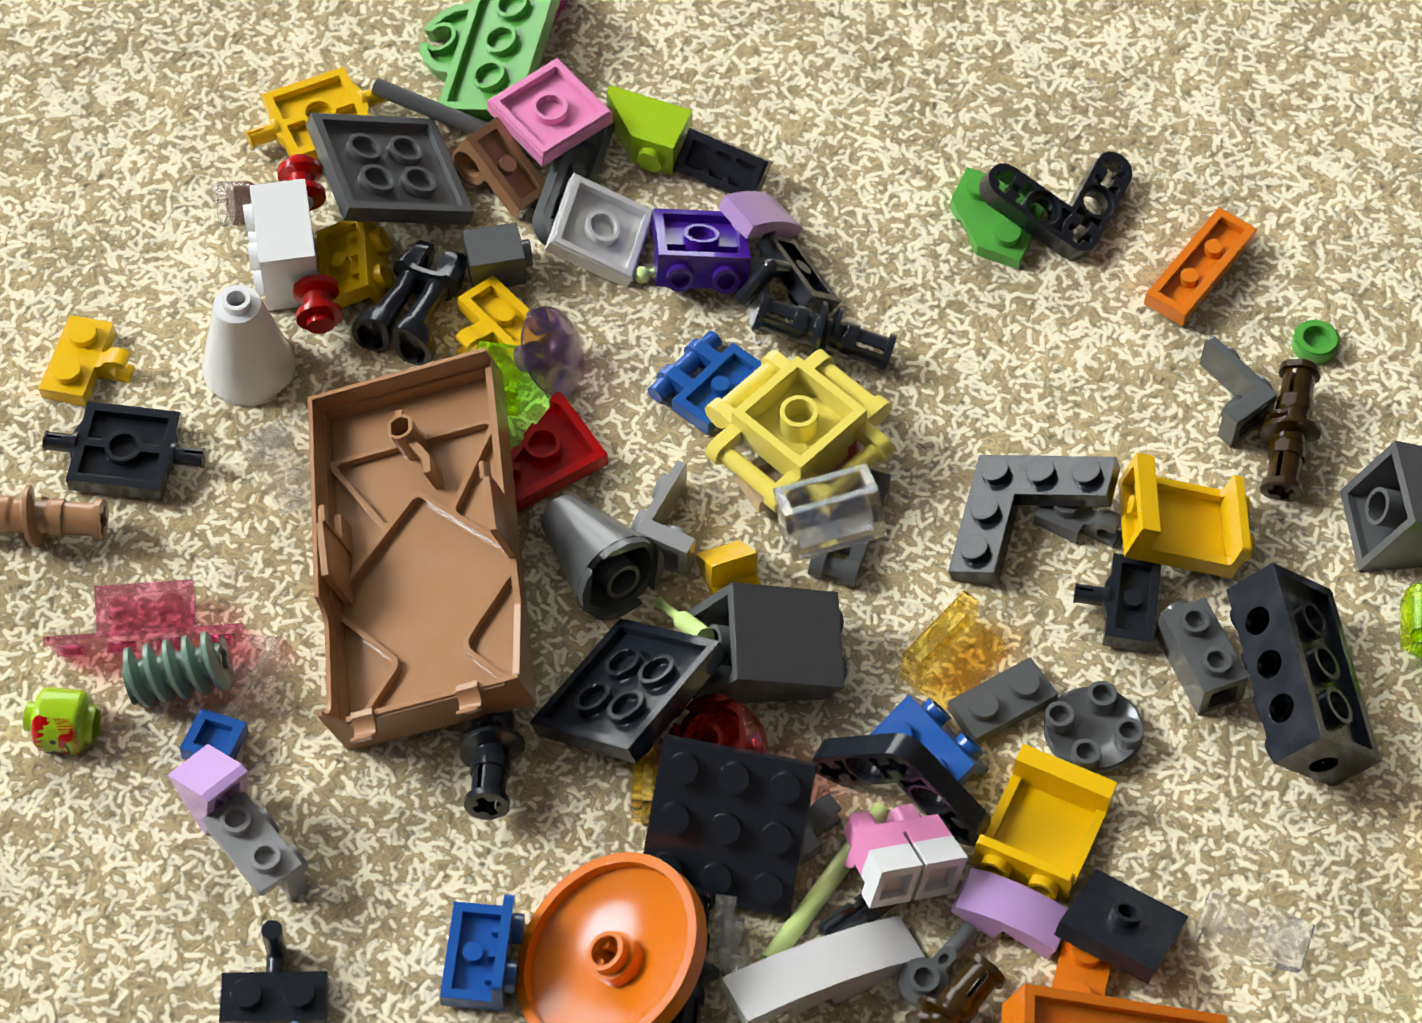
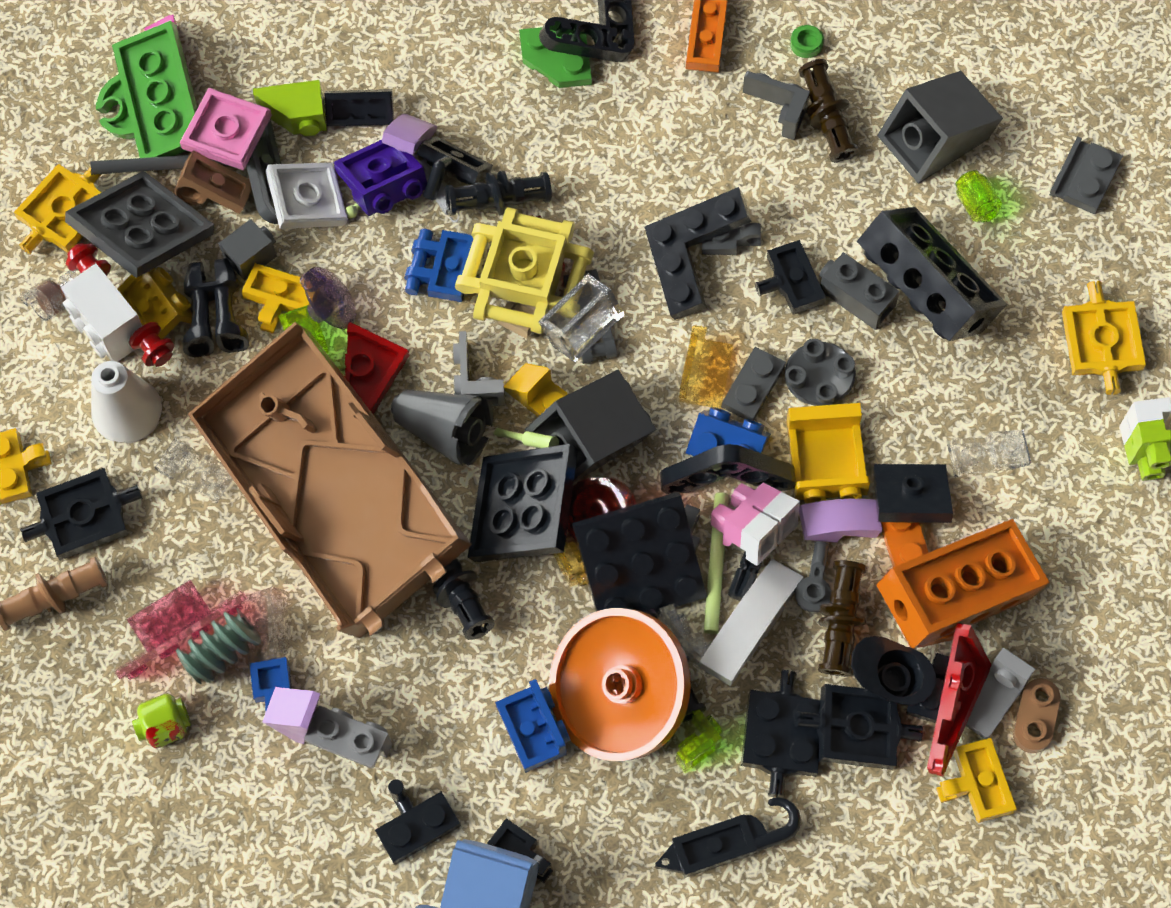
camera: 25 degrees left, 10 degrees up
(1184, 521) = (799, 206): yellow panel -> none

